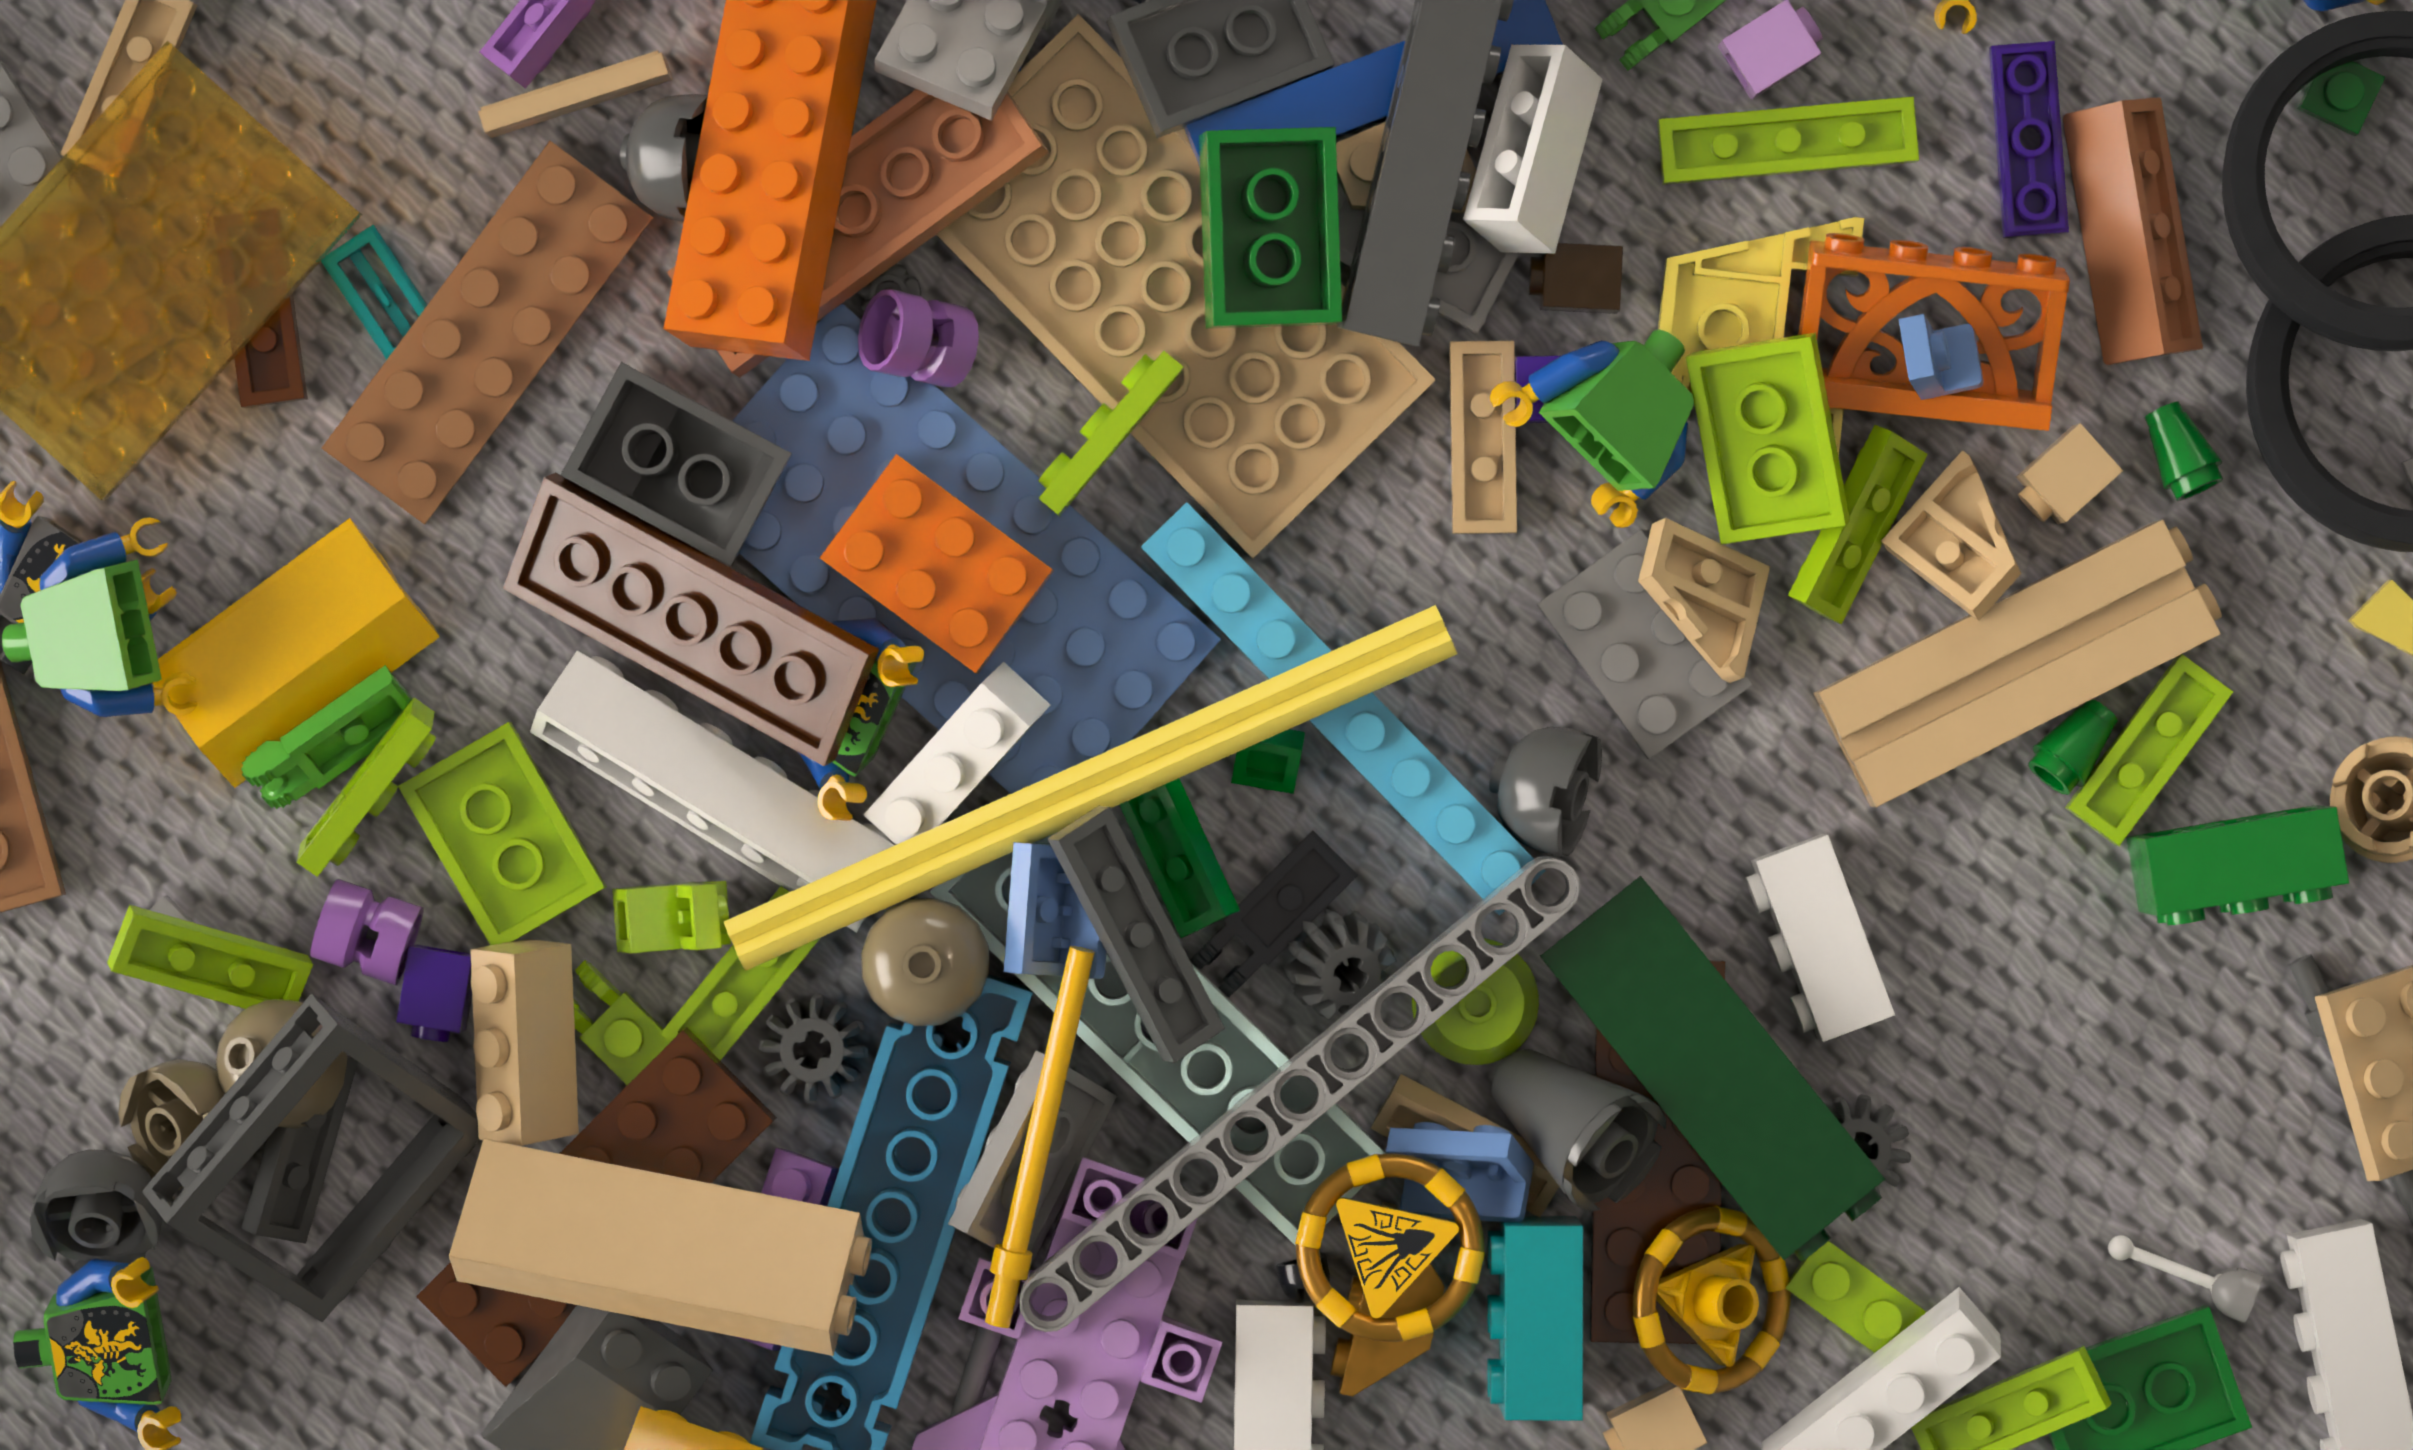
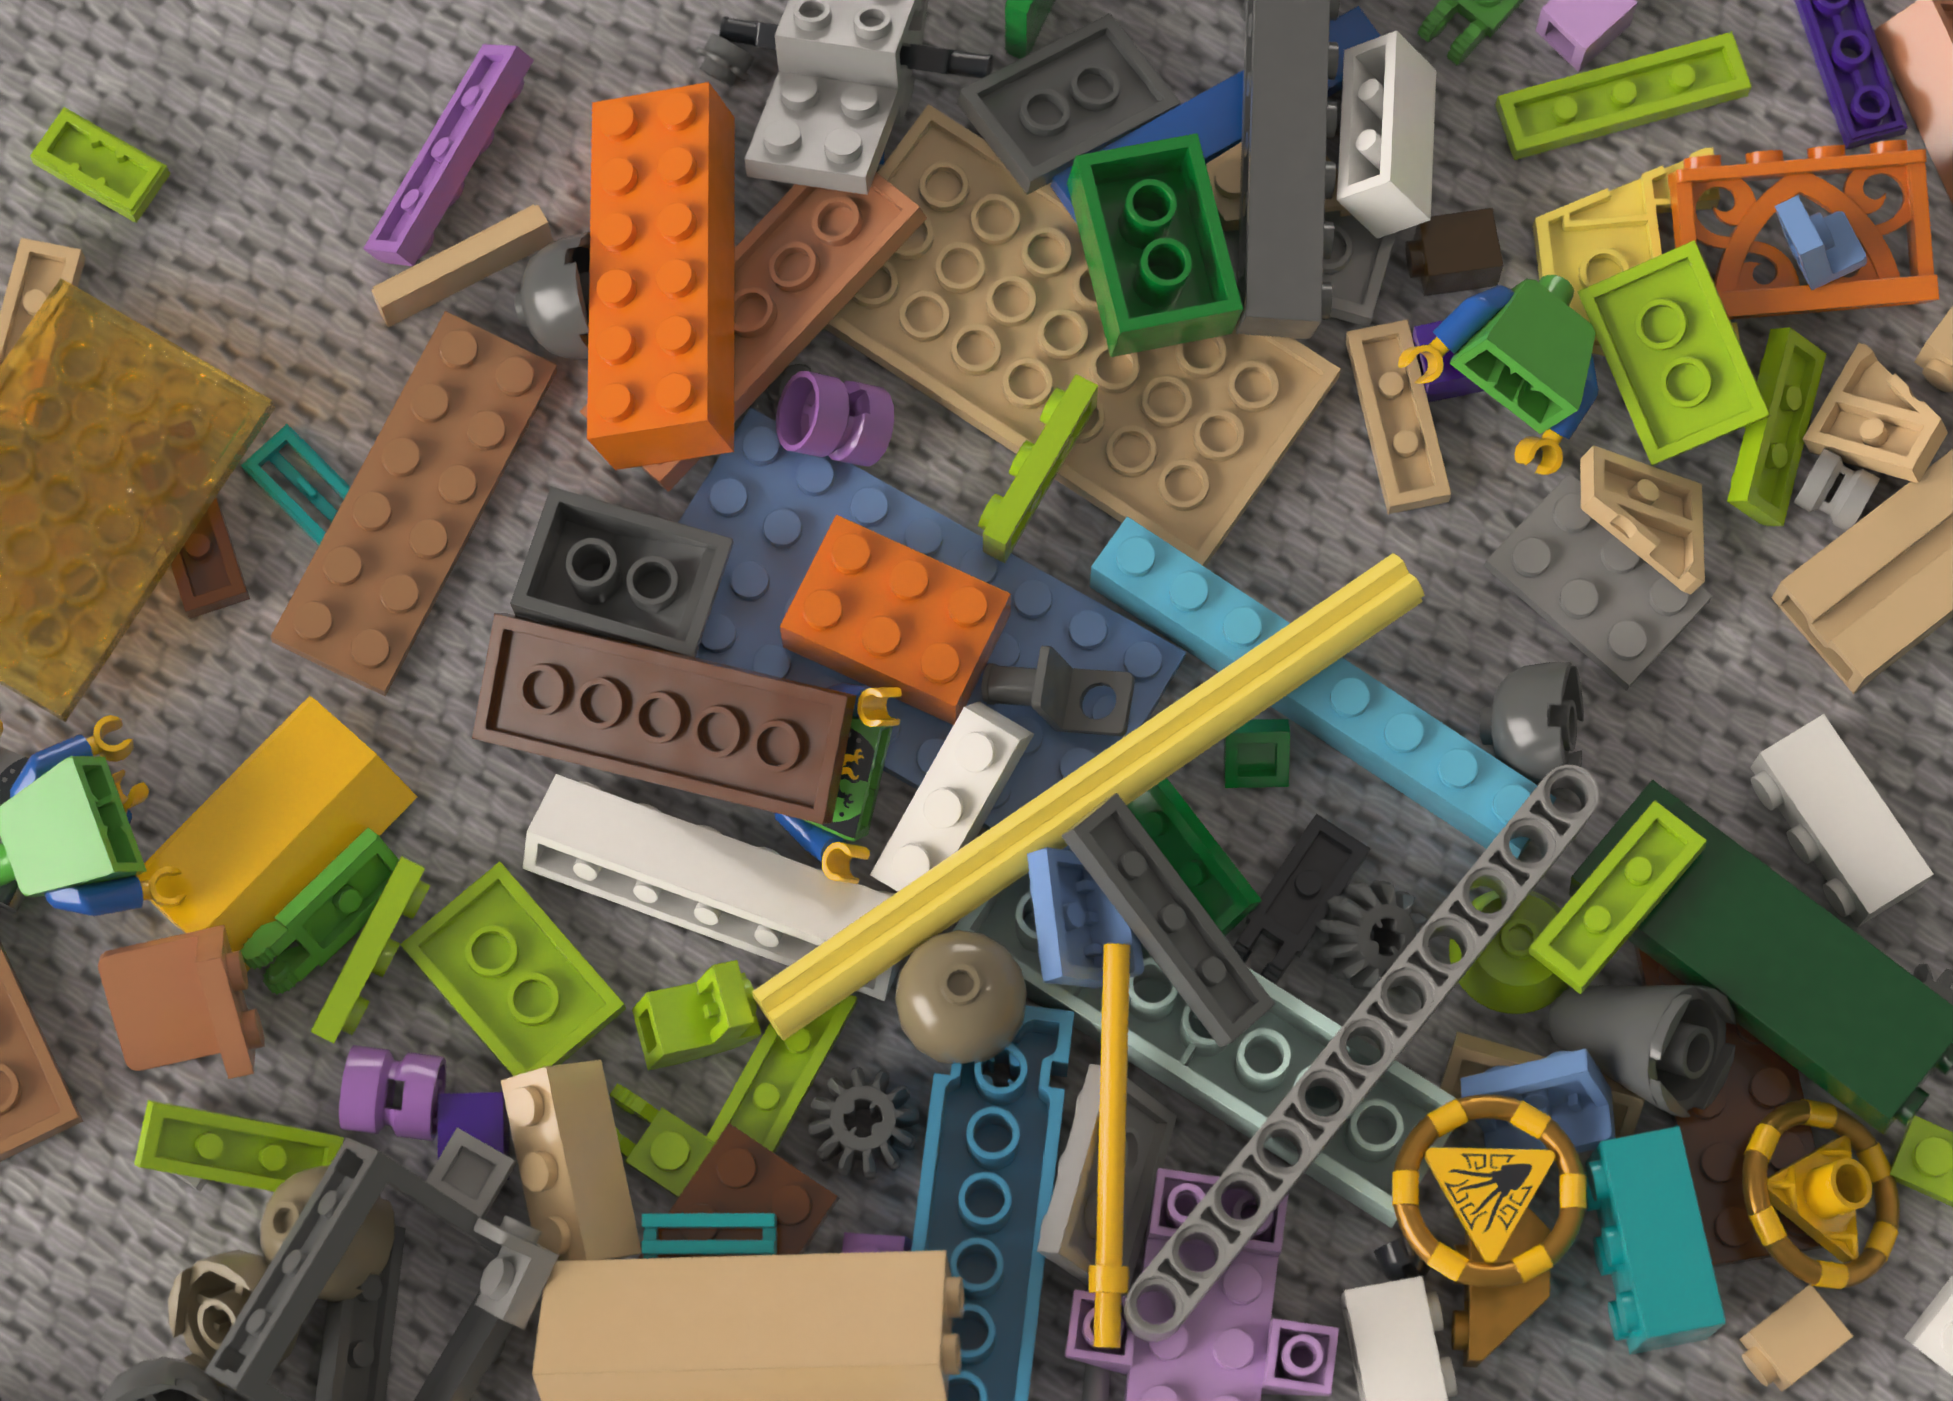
camera: 10 degrees left, 15 degrees down
(179, 804) = (182, 1002): none -> nougat bracket
(425, 1036) = (471, 1172): none -> light grey plate
(453, 1145) = (517, 1274): none -> light grey bracket
(588, 1139) = (652, 1222): none -> teal tile
(1082, 666) = (1058, 693): none -> dark grey bracket
(1576, 992) = (1617, 897): none -> lime plate
(1911, 612) = (1848, 499): none -> light grey wheel

